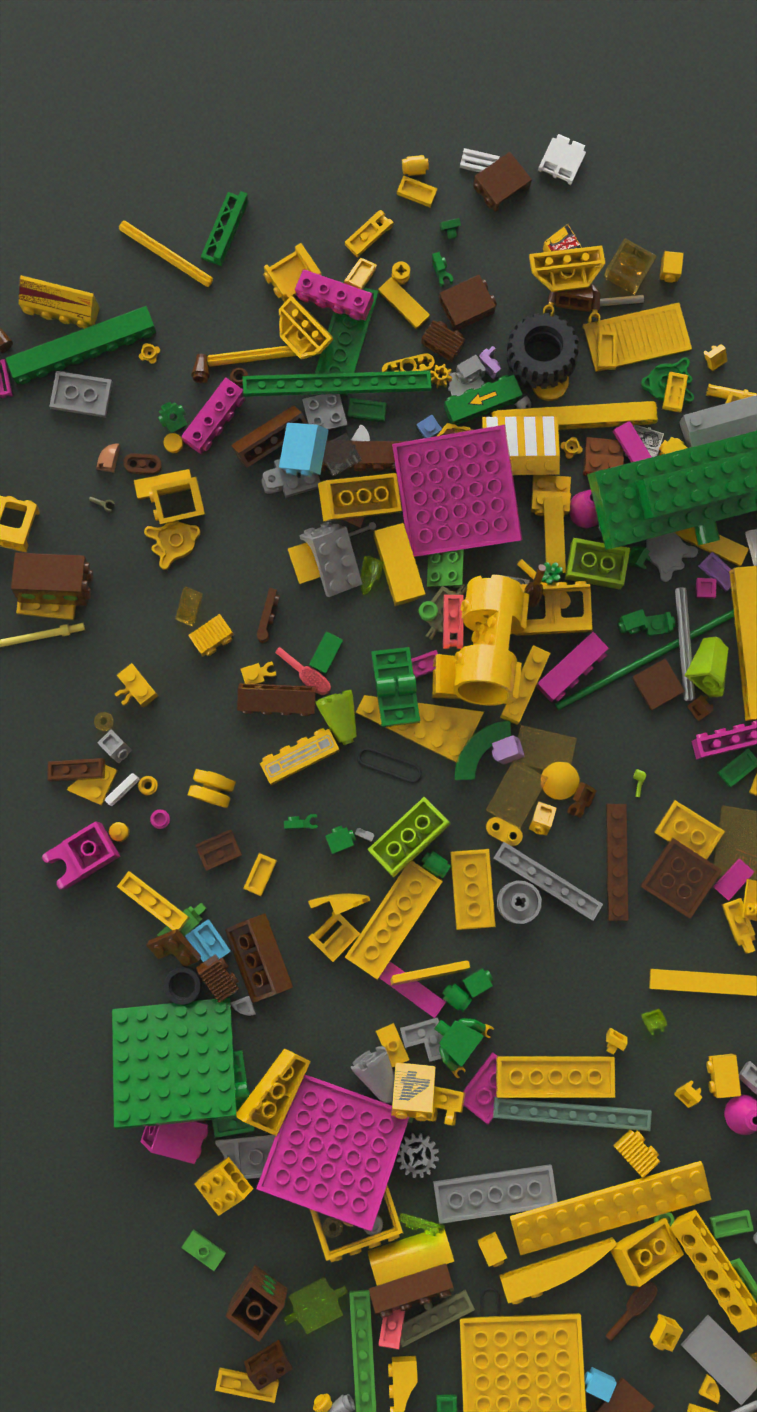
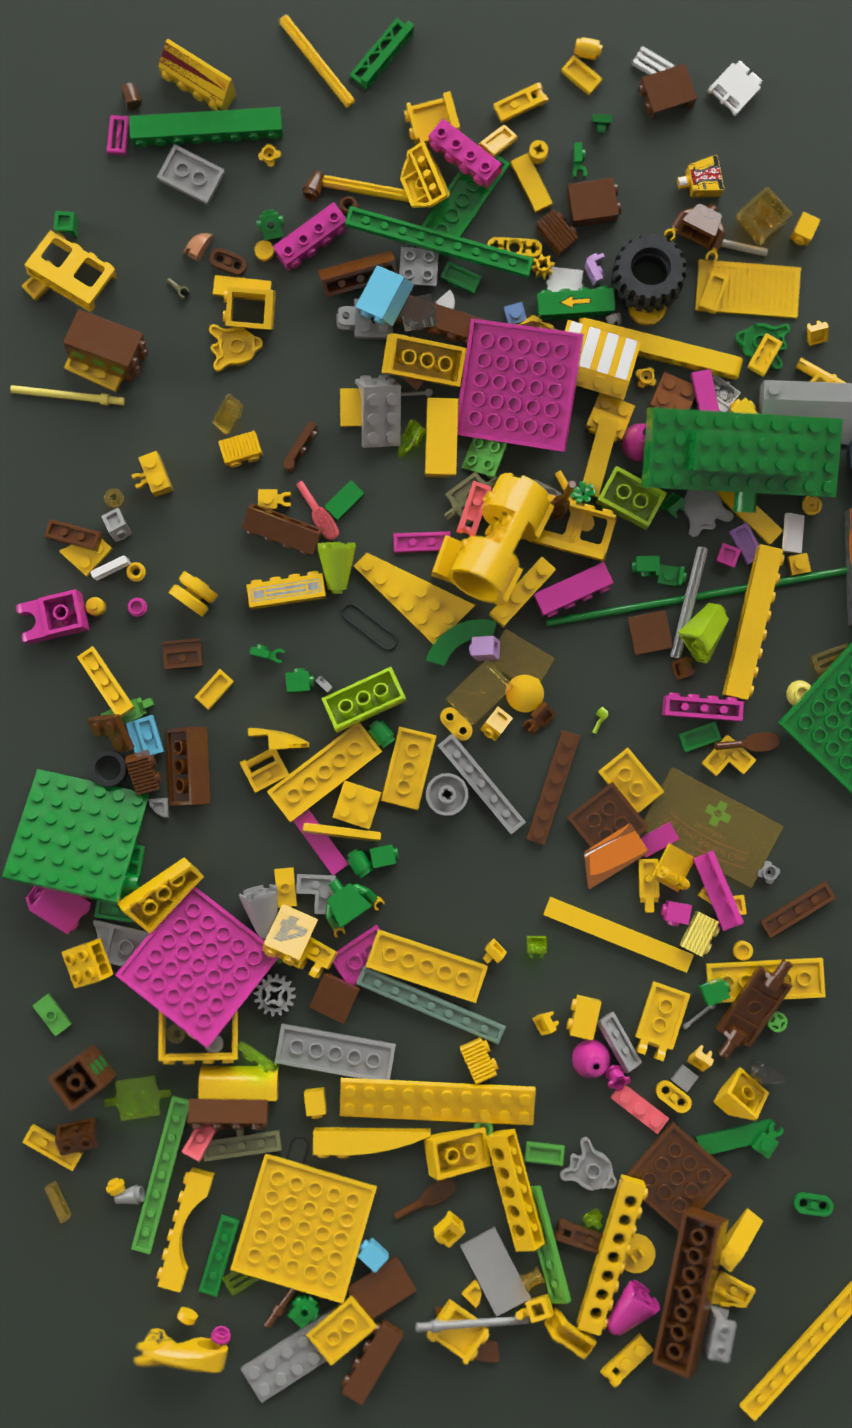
camera: 25 degrees right, 5 degrees up
(395, 687) = (398, 554): green plate -> none
(428, 611) = (453, 491): bright green tile -> none
(435, 940) = (357, 804): none -> yellow brick
(470, 370) = (572, 270): light grey brick -> none
(476, 1138) = (334, 997): none -> reddish brown tile
(567, 268) = (700, 198): yellow wedge -> none
(697, 908) = (613, 854): none -> orange sticker

